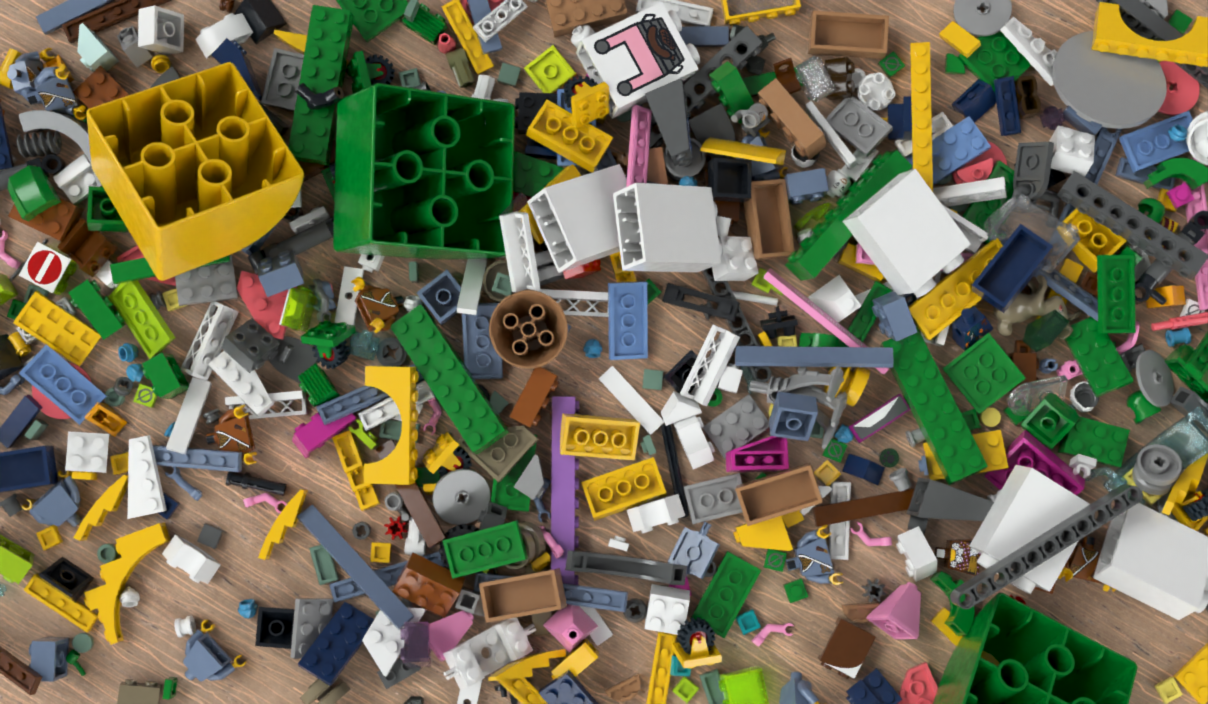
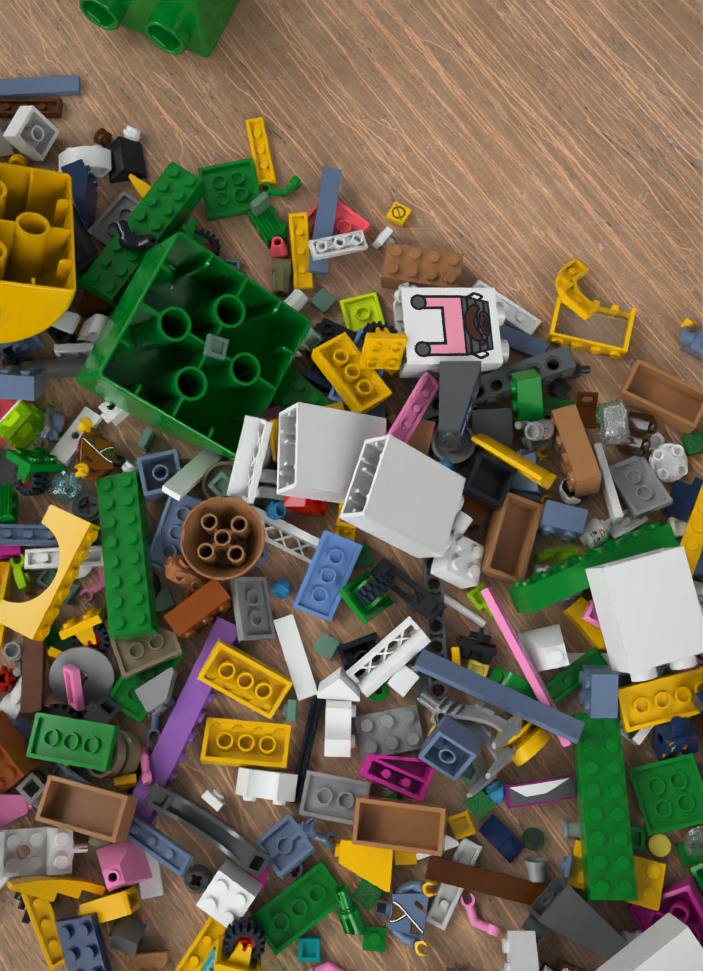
camera: 25 degrees right, 10 degrees down
(319, 194) = (92, 328): none -> white beam
(449, 169) = (215, 347): none -> sand green tile
(461, 507) = (73, 687): none -> bright pink tile
(504, 373) = (181, 573): none -> nougat brick
(521, 119) = (311, 339): none -> sand green tile
(558, 284) = (275, 509): none -> dark azure plate
(577, 376) = (252, 608): none -> light grey plate
(600, 676) = (127, 935): none -> dark grey brick
(669, 322) = (368, 595): none -> green plate
(709, 531) = (317, 836): none -> sand blue arm
(767, 579) = (349, 912): none -> green arm

